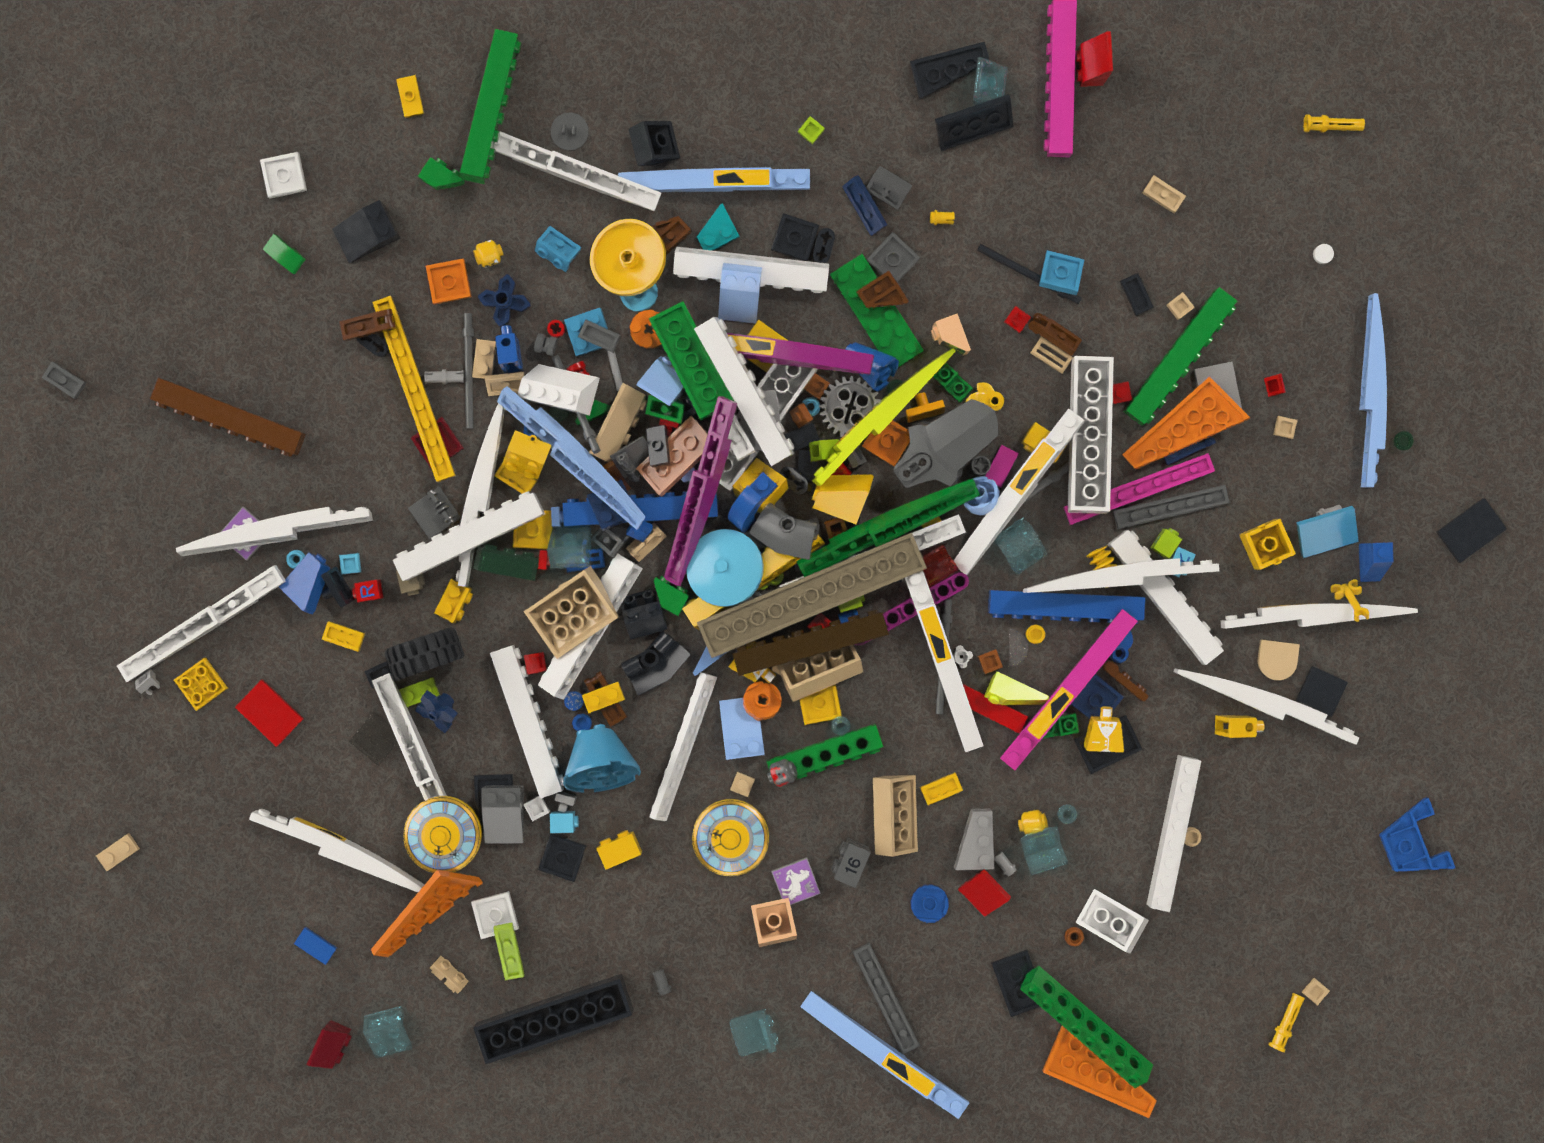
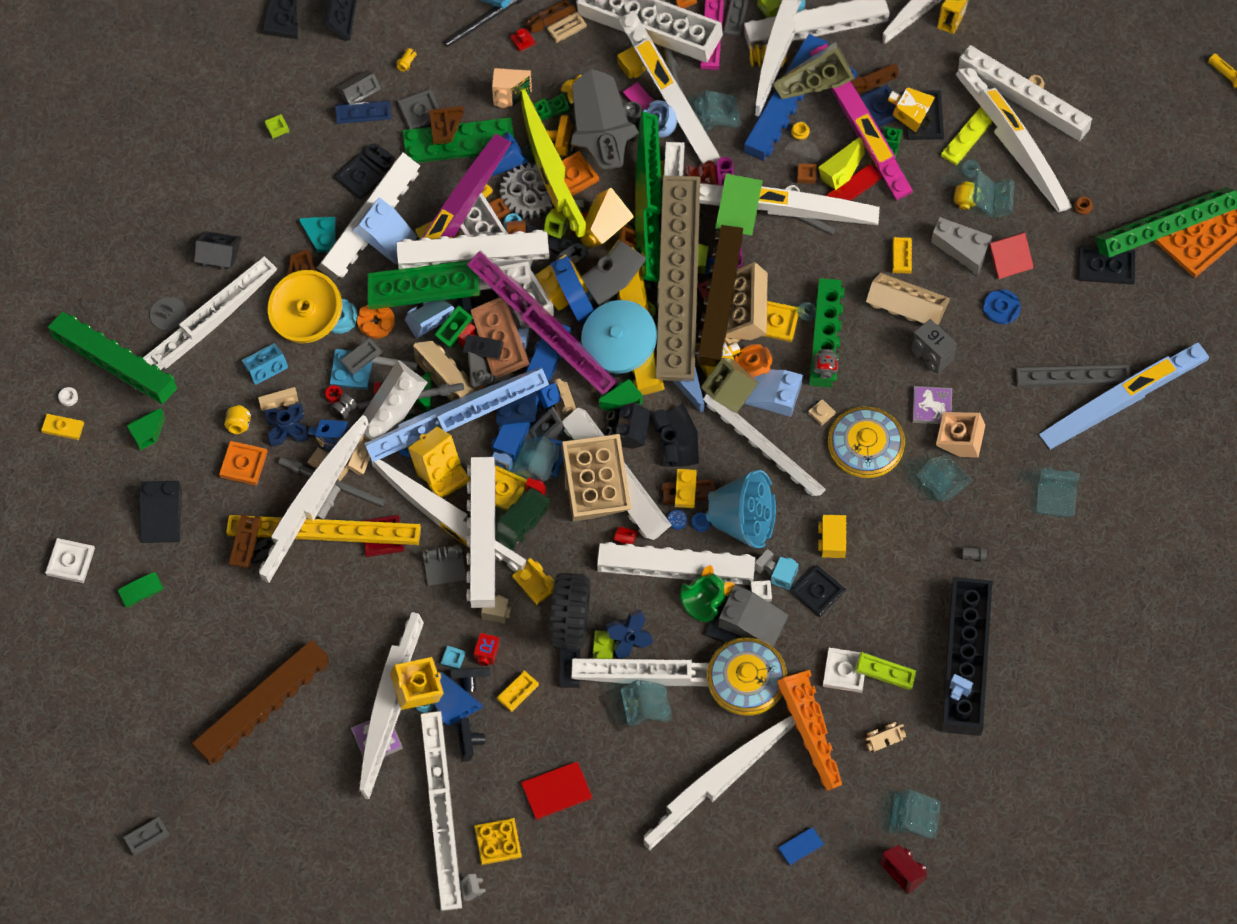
camera: 65 degrees left, 25 degrees down
(278, 615) = (468, 739): none -> black tile
(292, 551) = (416, 683): none -> yellow brick
(380, 756) = (645, 701): none -> clear light blue bracket
(430, 364) = (311, 498): none -> white slope
(442, 84) = (68, 396): none -> white tile
(506, 763) = (705, 595): none -> green hair
(508, 1031) = (960, 686): none -> light blue tile
(518, 275) = (277, 399): none -> tan plate
(721, 179) = (280, 206): light blue slope -> none
(724, 692) = (730, 384): none -> olive slope
(724, 925) = (944, 477): none -> clear light blue slope
(913, 618) = (739, 203): none -> bright green tile
(1005, 864) = (995, 232): light grey pin -> none
(1099, 631) = (820, 72): none -> olive wedge
(1105, 797) = (967, 137): none -> neon yellow plate
(1112, 921) = (1083, 169): white slope -> none
(1118, 843) = (1015, 138): none -> white slope
(1315, 991) = (1214, 45): tan tile -> none

